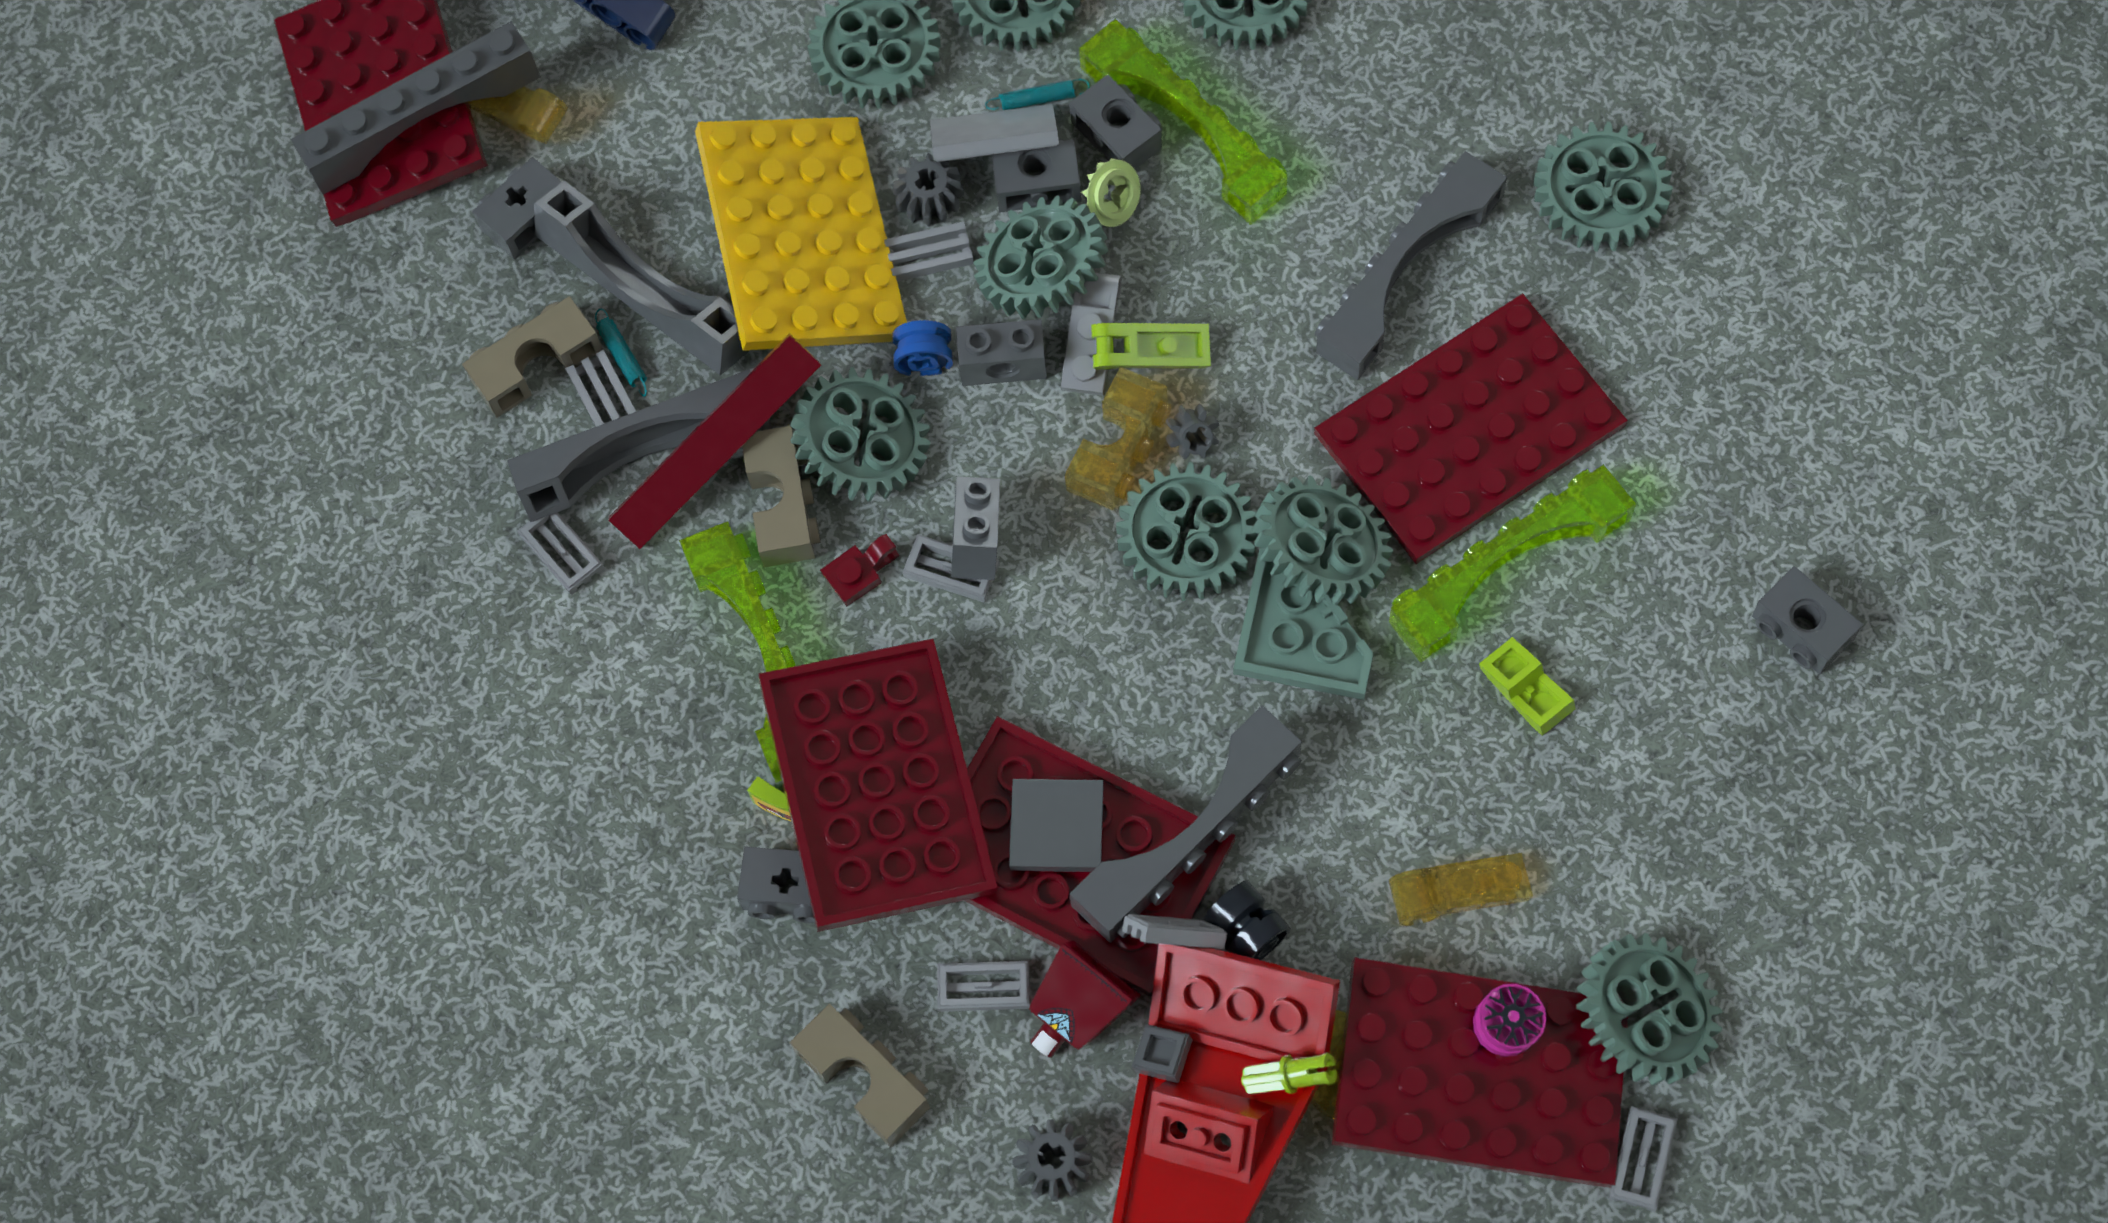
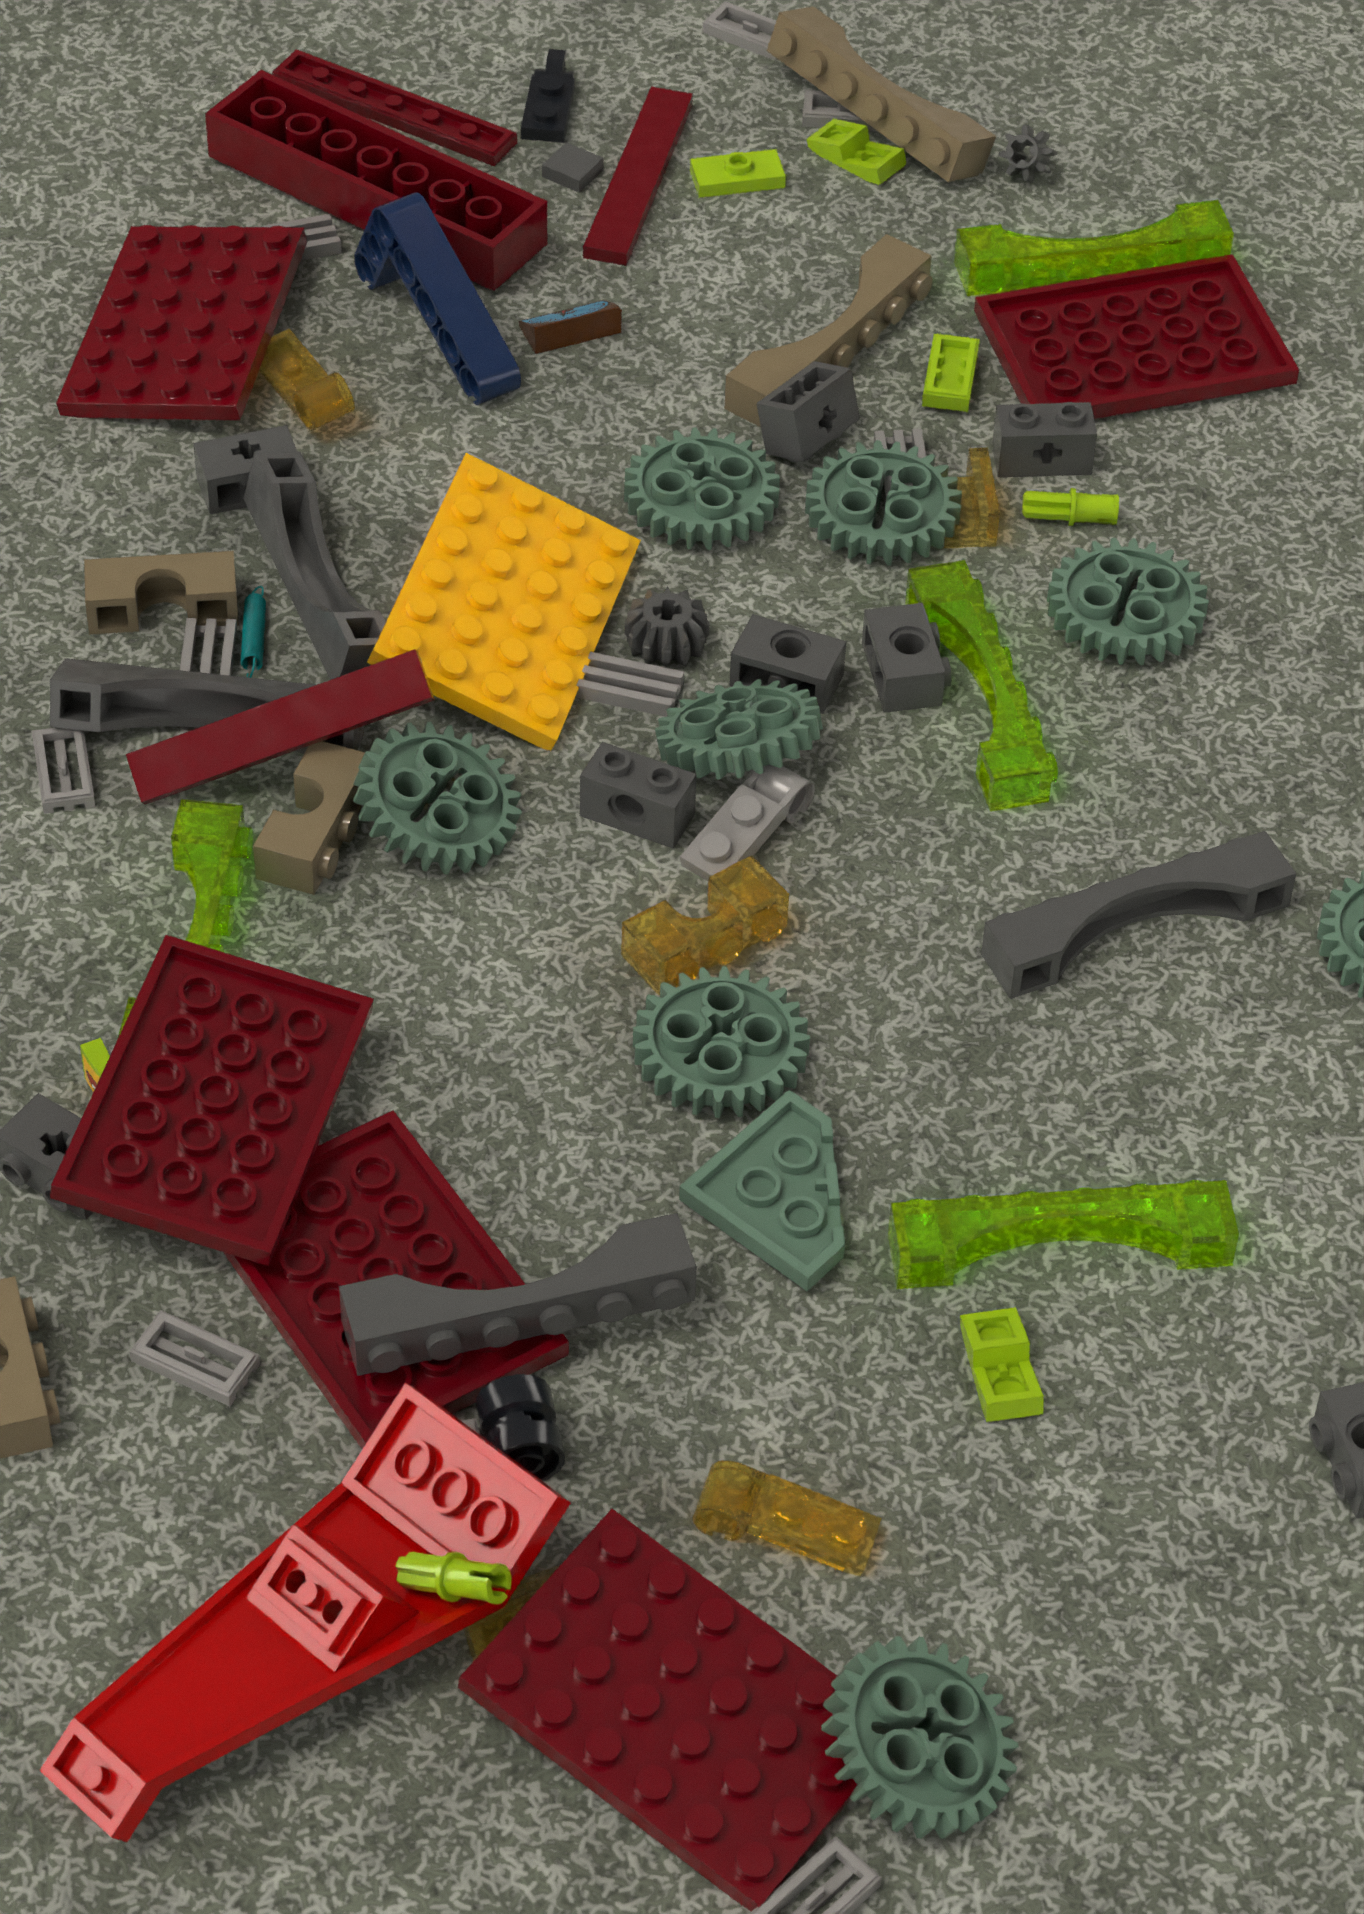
camera: 20 degrees right, 20 degrees down
(351, 139) = (112, 331): dark grey arch -> none
(855, 573) = (345, 922): dark red plate -> none
(911, 572) = (458, 999): light grey tile -> none
(922, 347) = (555, 753): blue wheel -> none
(975, 528) = (493, 928): dark grey brick -> none
(993, 132) = (767, 604): light grey tile -> none
(1037, 95) = (834, 600): teal piece -> none
(1056, 825) = (379, 1230): dark grey tile -> none
(1058, 1145) = (142, 1552): dark grey gear -> none
(1077, 1000) = (280, 1408): dark red torso -> none
(1124, 196) = (868, 725): yellowish green gear -> none
(1152, 345) = (800, 856): lime plate -> none
(1162, 1053) = (335, 1507): dark grey tile -> none
(1174, 931) = (428, 1380): light grey tile -> none
(1196, 440) = (804, 955): dark grey gear -> none
(1335, 561) = (890, 1138): sand green gear -> none
(1469, 428) = (1104, 1095): dark red plate -> none
(1509, 1020) = (742, 1654): dark pink wheel -> none

